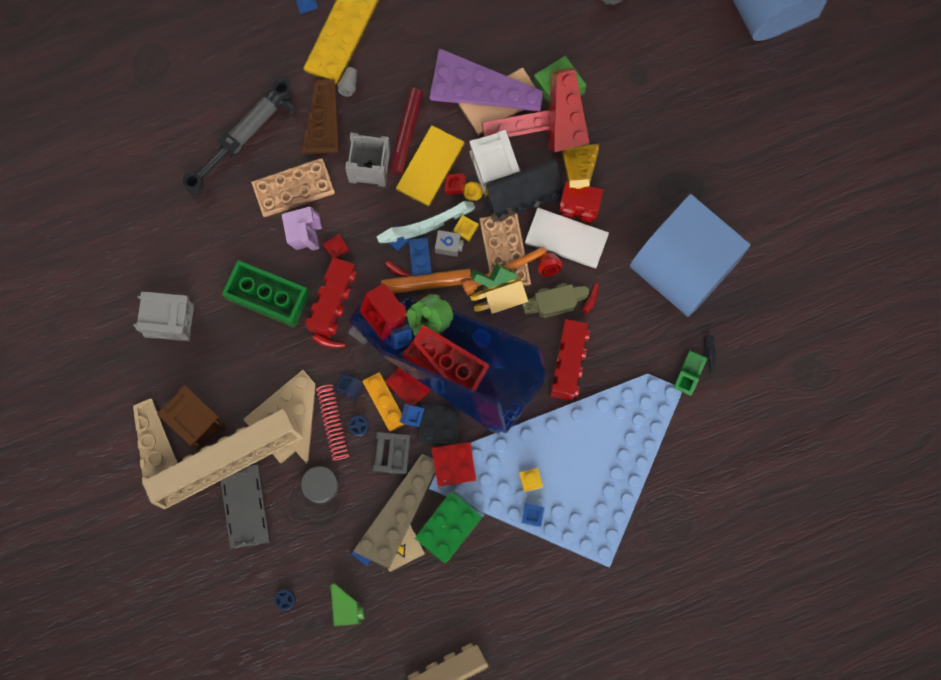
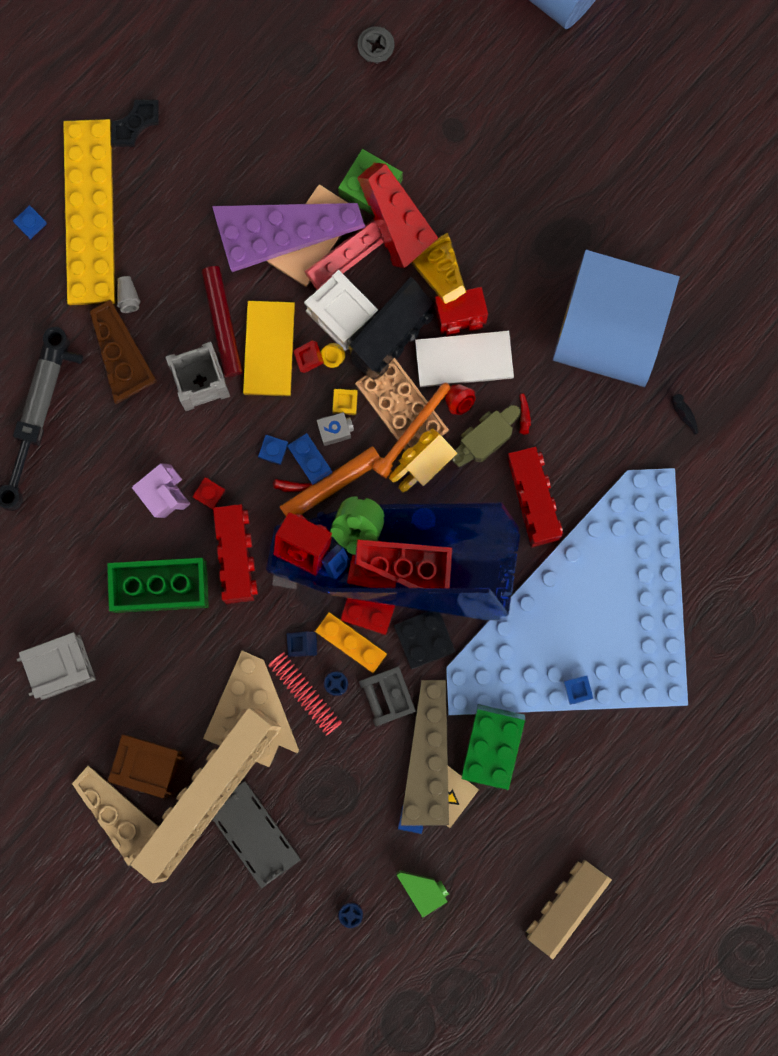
camera: 25 degrees left, 5 degrees up
(293, 187) = (125, 448): light nougat tile -> none
(319, 484) = (325, 770): dark grey head -> none
(326, 342) = (248, 607): red helmet -> none
(412, 415) = (390, 643): blue plate -> none
(425, 226) = (300, 420): light aqua tile -> none
(454, 464) = (464, 676): red plate -> none
(498, 276) = (411, 441): green slope -> none
(530, 480) = (556, 651): yellow plate -> none
(690, 372) = (674, 446): green slope -> none

